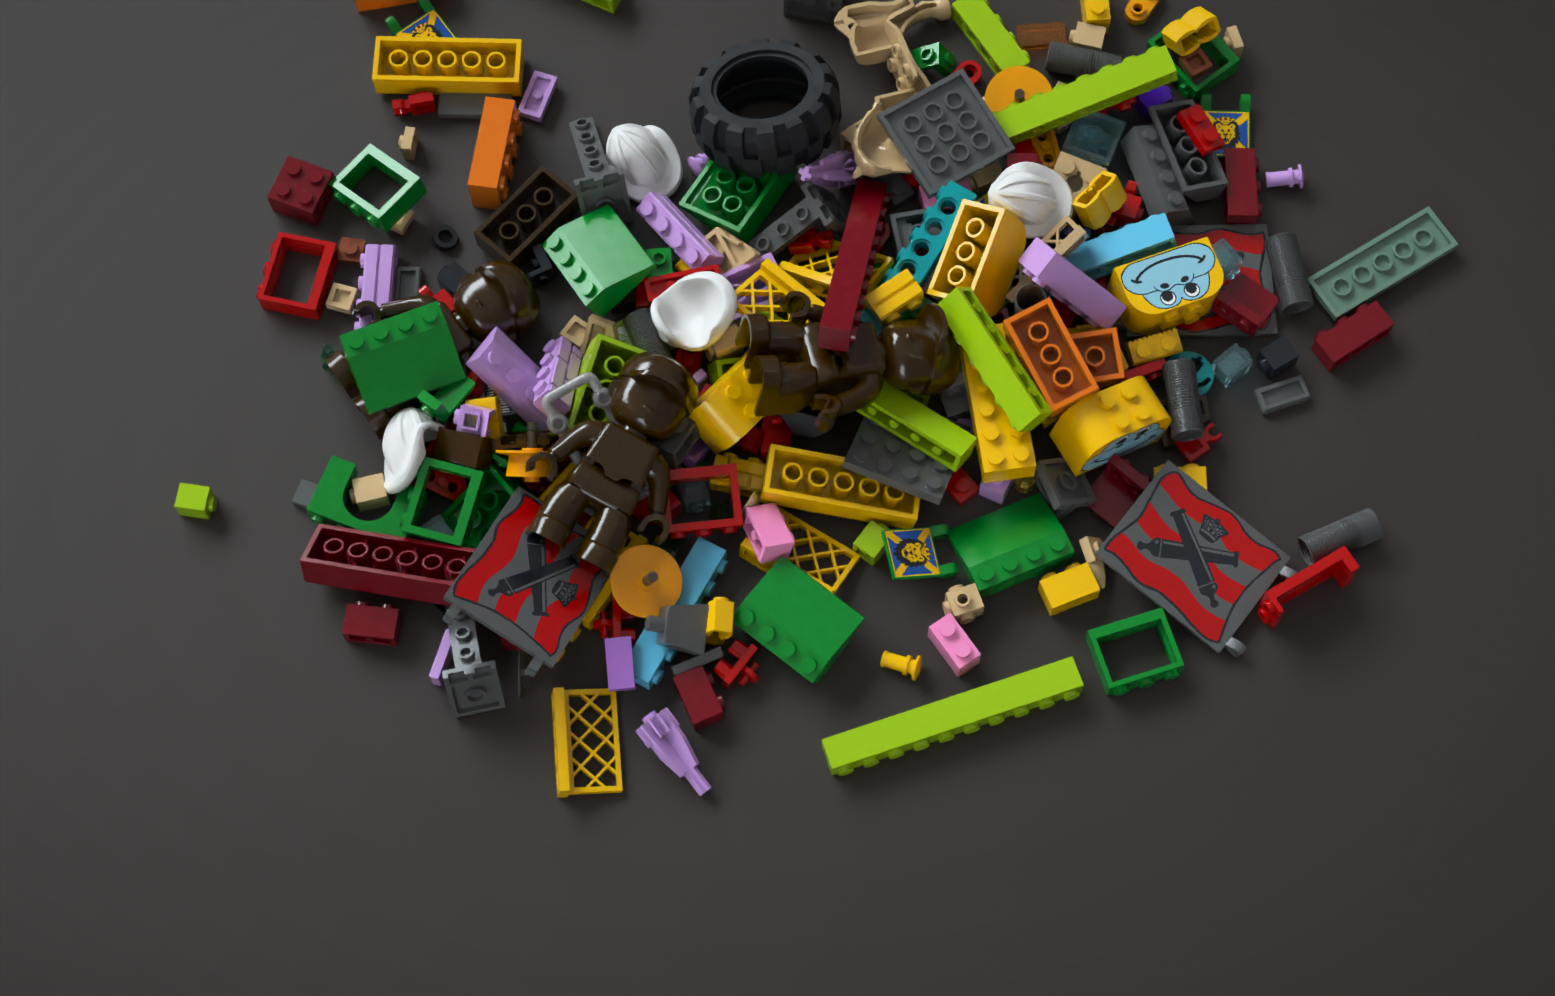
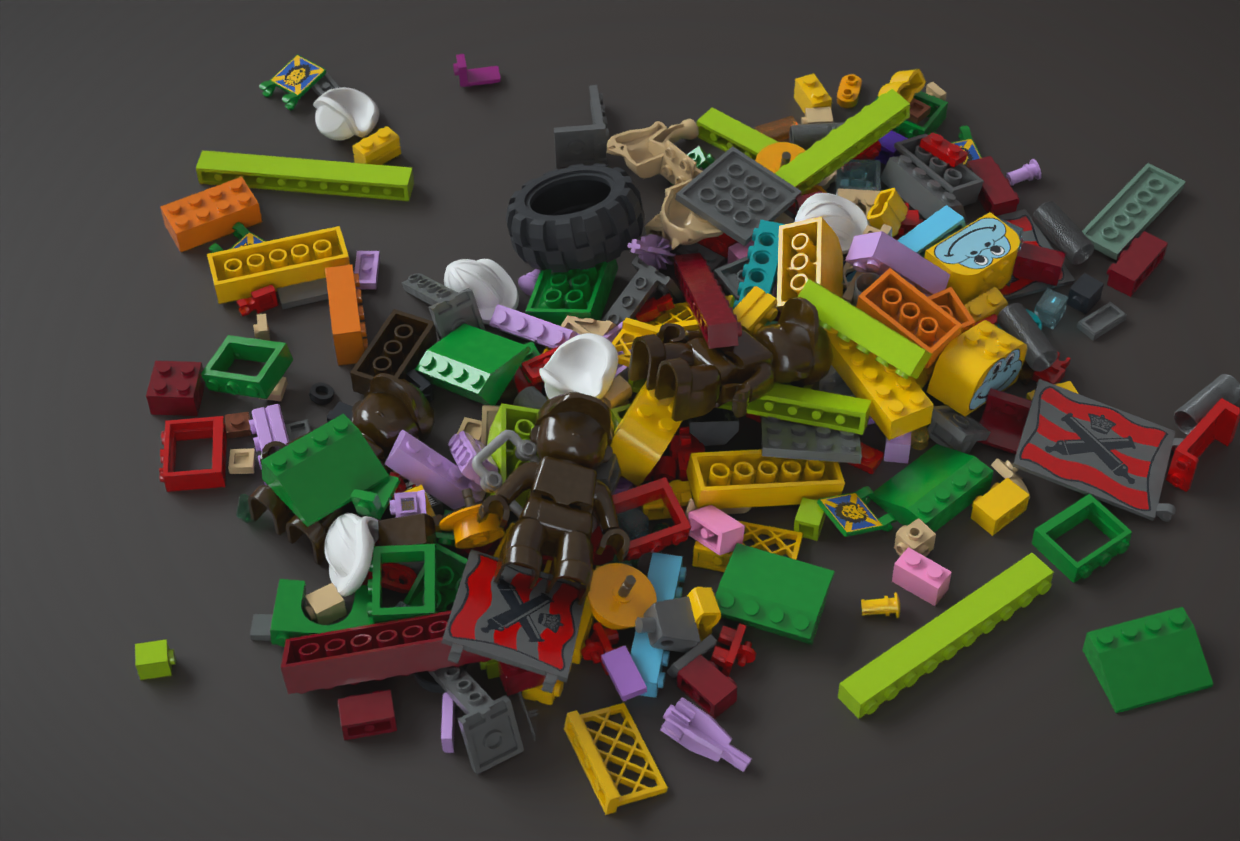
camera: 20 degrees left, 20 degrees down
(1136, 808) = (1148, 659): none -> green slope

